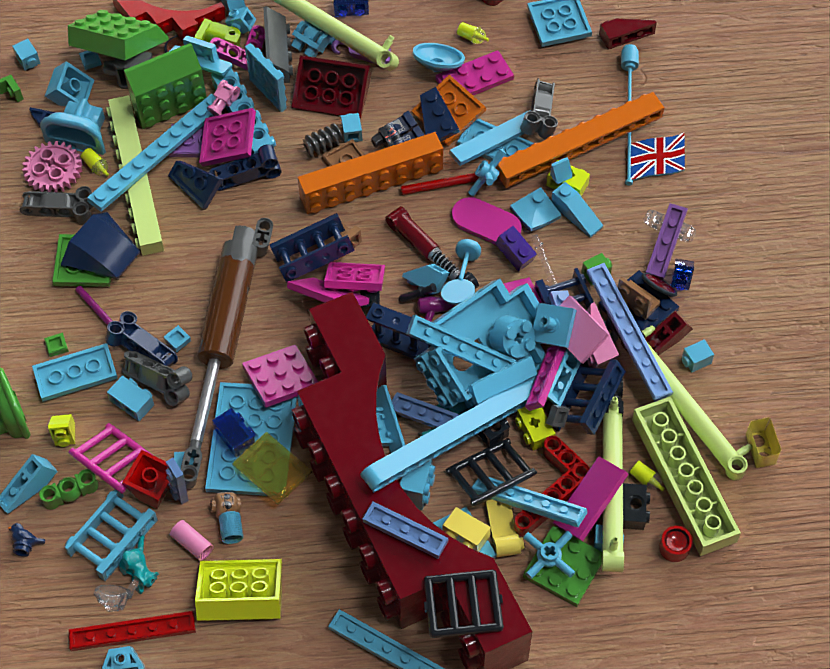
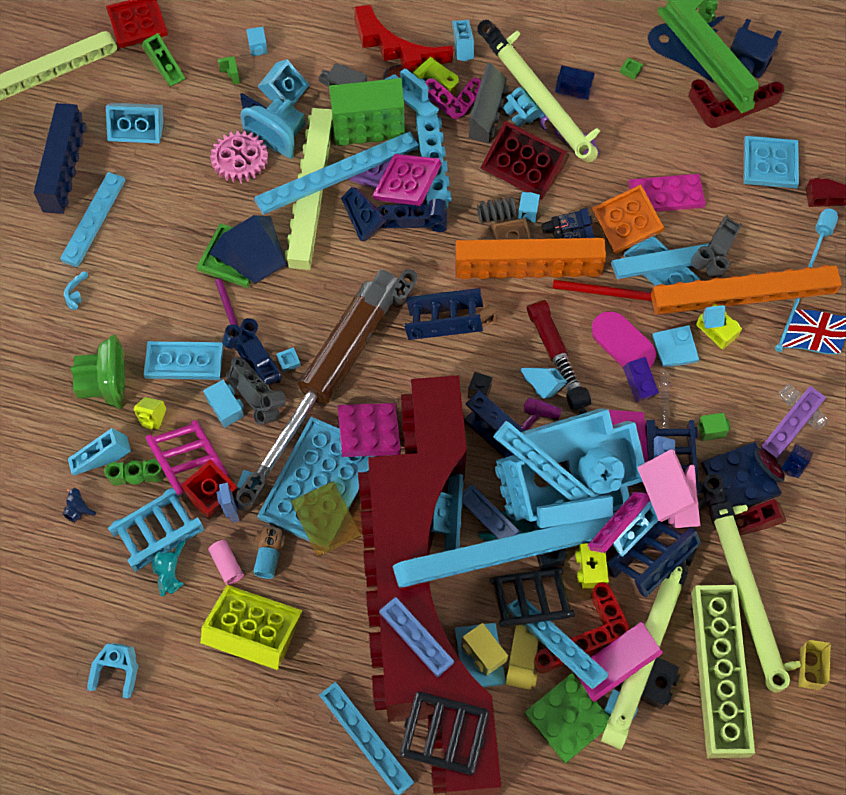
camera: 20 degrees right, 5 degrees up
(56, 344) = (178, 328): bright green tile -> none
(58, 204) = (230, 194): dark grey piece -> none
(90, 59) = (313, 63): medium azure plate -> none
(95, 162) = (279, 164): piece -> none
(113, 596) = (135, 591): clear hat -> none
(114, 35) = (339, 48): bright green slope -> none
(132, 631) = (139, 630): red tile -> none
(224, 95) = (418, 139): bright pink connector -> none
(234, 432) = (303, 471): clear blue brick -> none
(241, 19) = (464, 68): medium azure brick -> none
(266, 77) = (464, 132): medium azure plate -> none
(315, 289) = (440, 362): dark pink tile -> none
(354, 277) = (474, 356): dark pink plate -> none
(418, 482) = (452, 589): medium azure brick -> none
(420, 292) = (532, 392): black piece -> none
(437, 116) = (613, 221): dark blue wing -> none
(438, 56) = (637, 162): medium azure dish -> none
(460, 289) = (570, 404): medium azure piece -> none
(472, 33) = (680, 149): piece -> none
(487, 172) = (641, 294): medium azure bar -> none
(549, 548) = (553, 711): medium azure bar -> none
(554, 325) = (646, 473): medium azure tile -> none
(558, 416) = (617, 565): dark grey tile -> none
(575, 209) = (715, 359): medium azure slope -> none
(629, 332) = (720, 505): light blue tile -> none
(637, 299) = (741, 471): medium nougat bracket -> none
(647, 476) = (684, 657): neon yellow piece -> none
(675, 543) = (686, 737): red piece -> none
(697, 356) = (781, 550): medium azure brick -> none

